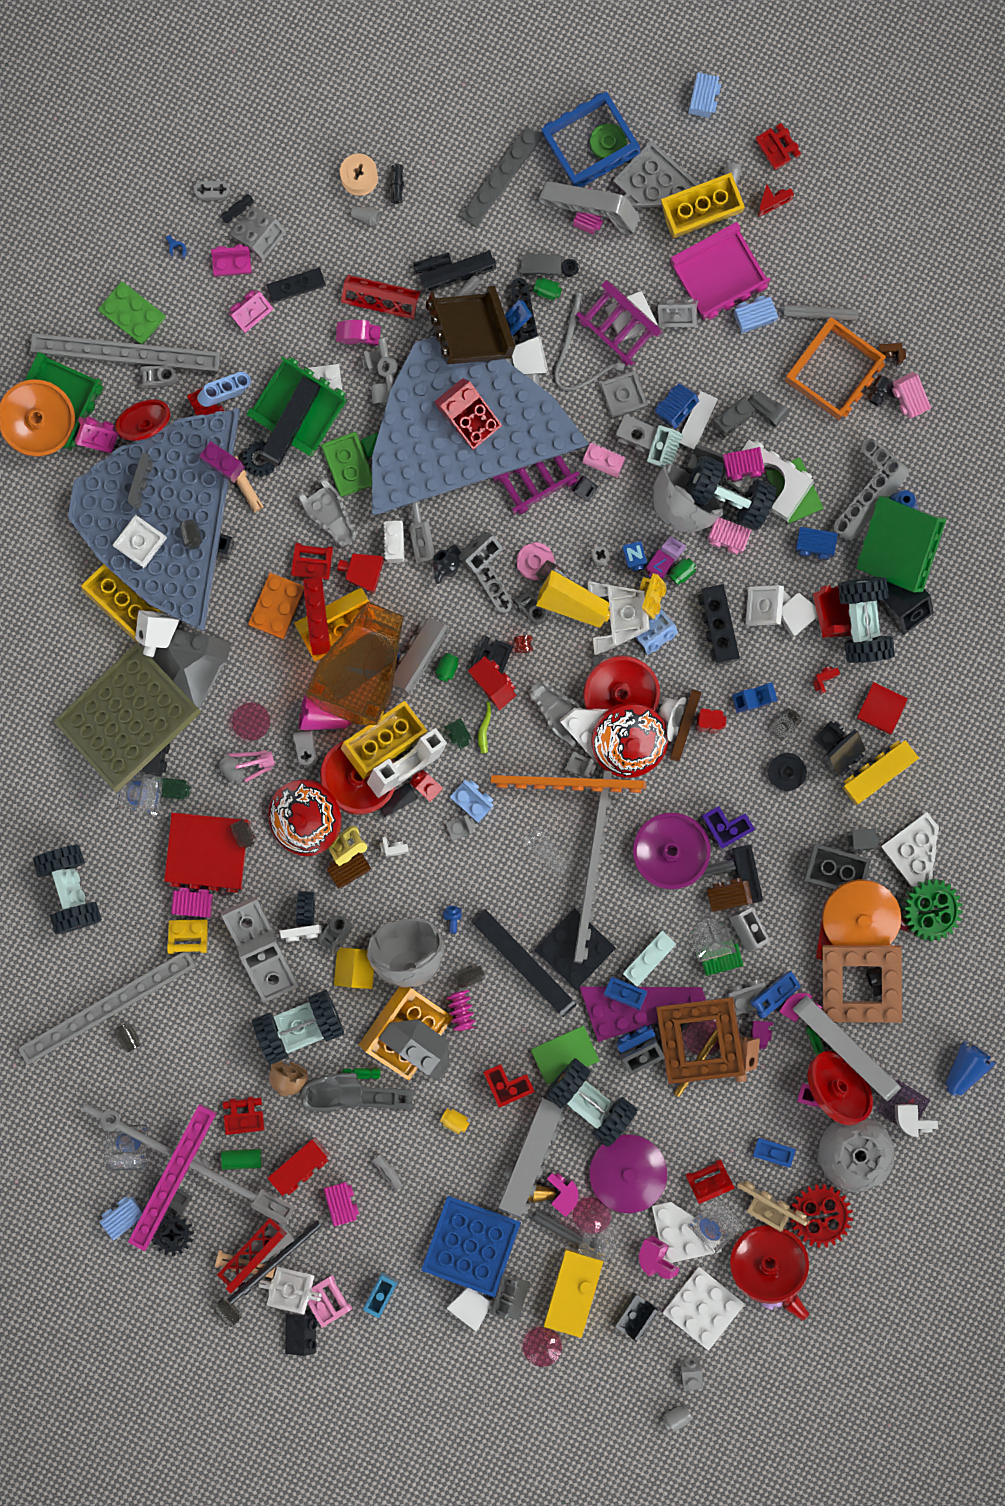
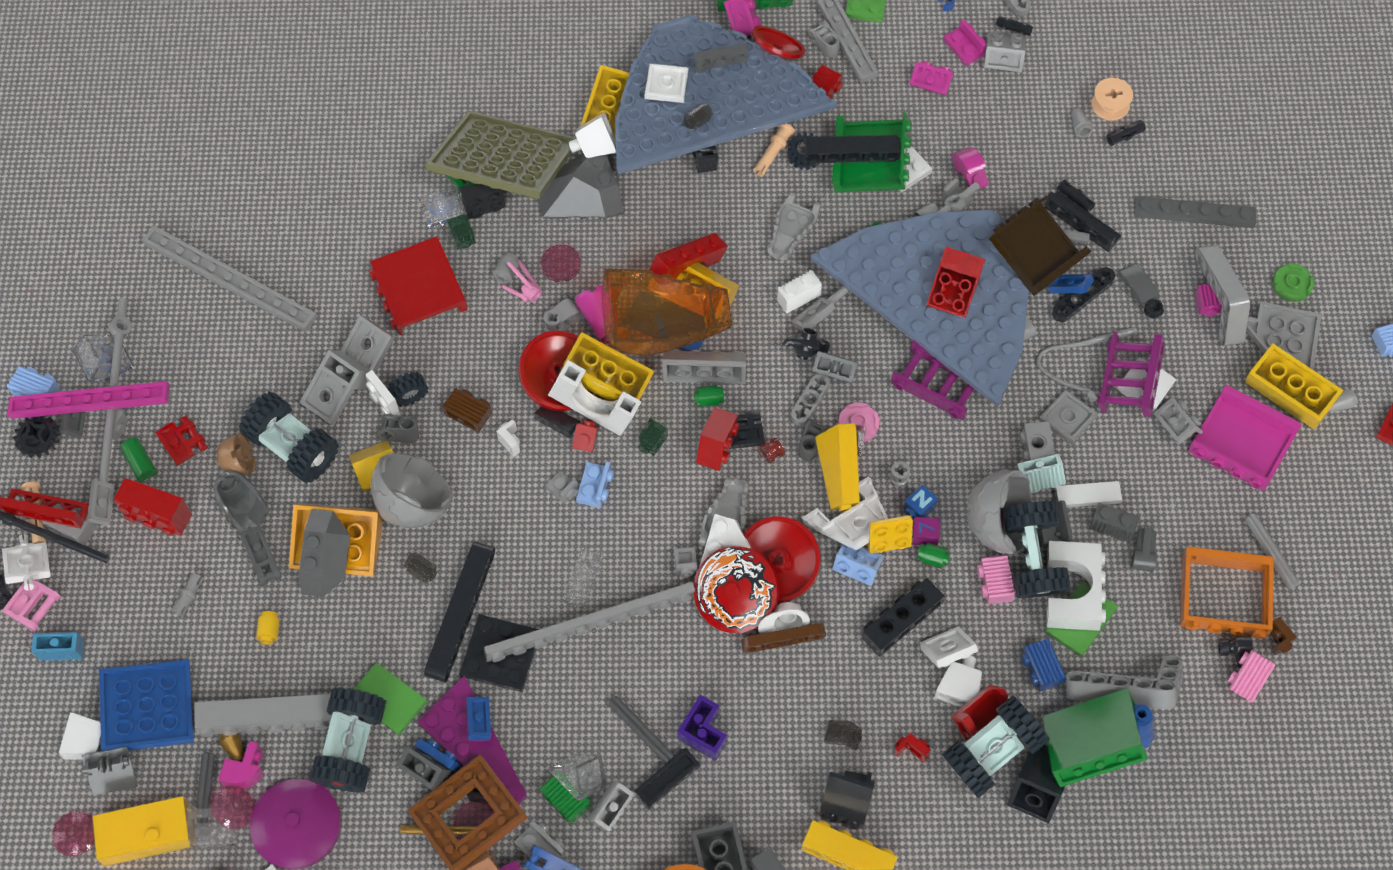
camera: 60 degrees right, 20 degrees down
(61, 865) = (304, 202): black plate -> none
(127, 1037) = (208, 307): clear smoke brick -> none
(187, 931) = (333, 305): yellow plate -> none
(192, 903) = (362, 297): dark pink brick -> none
(218, 394) = (838, 86): light blue beam -> none
(222, 461) = (778, 108): magenta brick -> none
(243, 834) = (448, 298): clear smoke brick -> none
(276, 606) = (677, 228): orange plate -> none
(296, 285) = (979, 102): black plate -> none
(304, 817) = (494, 344): dish -> none
(311, 567) = (730, 234): red plate -> none
(340, 1203) = (135, 566): dark pink brick -> none
(341, 849) = (487, 392): light yellow plate -> none
(348, 464) = (846, 219): bright green tile -> none
(362, 571) = (756, 281): red torso -> none
(364, 1073) = (276, 524): green axle -> none
(383, 291) = (1021, 167): red fence -> none
(453, 914) = (474, 524): blue plate -> none
(461, 1010) = (381, 576): dark pink piece -> none
(482, 736) = (664, 460): lime animal -> none
(505, 1090) = (322, 655): red brick -> none
(529, 357) = (1047, 313): white torso -> none
(547, 289) = (1120, 299): green brick -> none
(577, 784) = (662, 558): orange plate -> none
(585, 488) = (956, 427): black tile -> none
(603, 460) = (993, 428): bright pink brick -> none
(604, 165) = (1272, 286): blue window -> none
(649, 958) = (515, 721): light aqua arch -> none
(671, 851) = (648, 688): magenta dish -> none
(673, 548) = (950, 535): lavender plate -> none
(676, 405) = (1089, 465): blue brick -> none
(710, 721) = (800, 654): red brick -> none
(730, 895) = (634, 768): reddish brown brick -> none
(743, 464) = (1073, 548): dark pink brick -> none
(754, 698) = (849, 687): blue brick -> none
(755, 314) = (1226, 490): light blue brick -> none
(771, 202) = (1341, 447): red slope -> none
(796, 766) = (789, 773): black plate -> none
(882, 708) = (917, 822): red slope -> none

